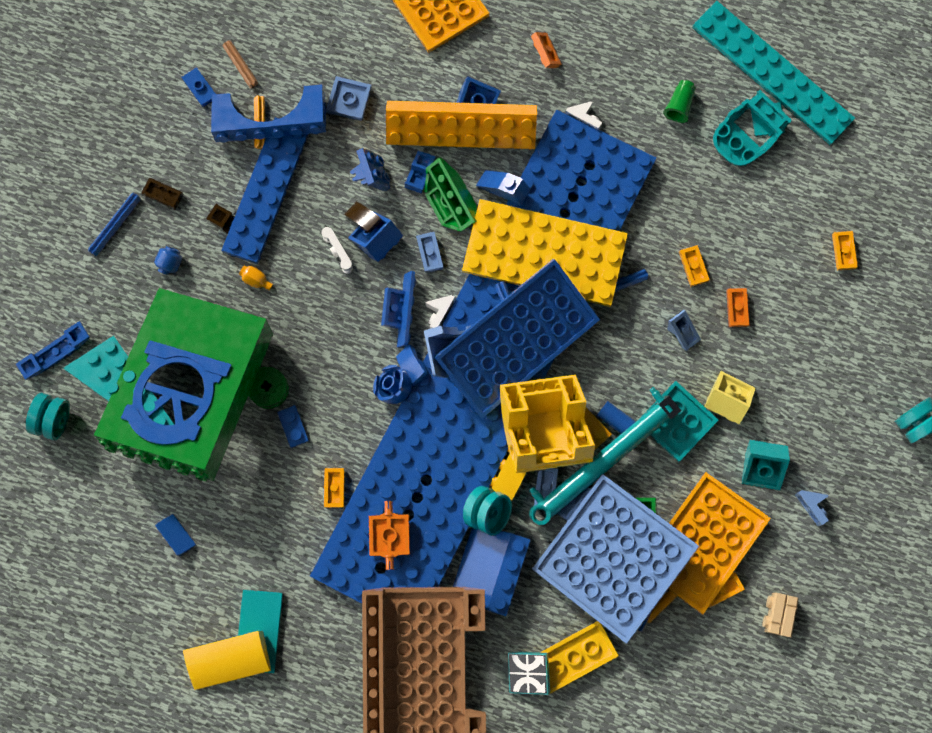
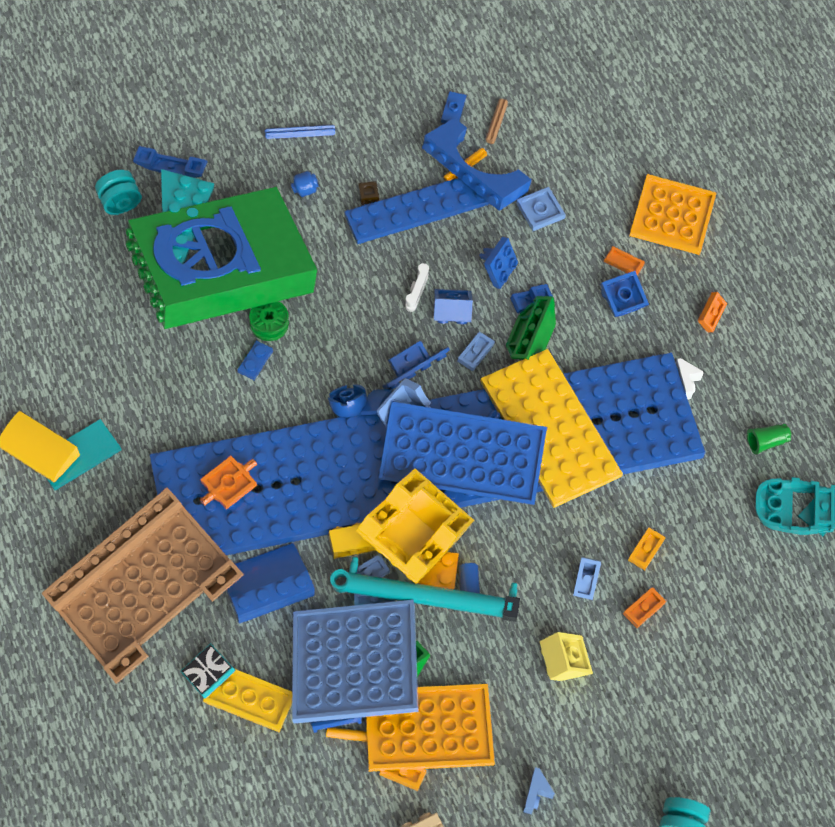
camera: 45 degrees right, 15 degrees down
(162, 193) = (351, 144): dark brown plate -> none
(175, 535) = (102, 343): blue slope -> none
(254, 277) = (345, 249): light orange plant -> none
(334, 487) = (233, 422): light orange plate -> none
(363, 217) = (458, 284): dark brown slope -> none
(442, 307) = (439, 389): white slope -> none
(447, 76) = (623, 261): none -> orange tile
(461, 124) = (594, 295): light orange brick -> none
(487, 510) = (309, 537): teal wheel -> none
(504, 186) = (576, 361): blue slope -> none
(631, 279) = (588, 510): blue axle -> none
(687, 427) = (511, 640): teal plate -> none
(765, 464) = (535, 726): teal slope -> none
(844, 250) = (770, 655): light orange plate -> none

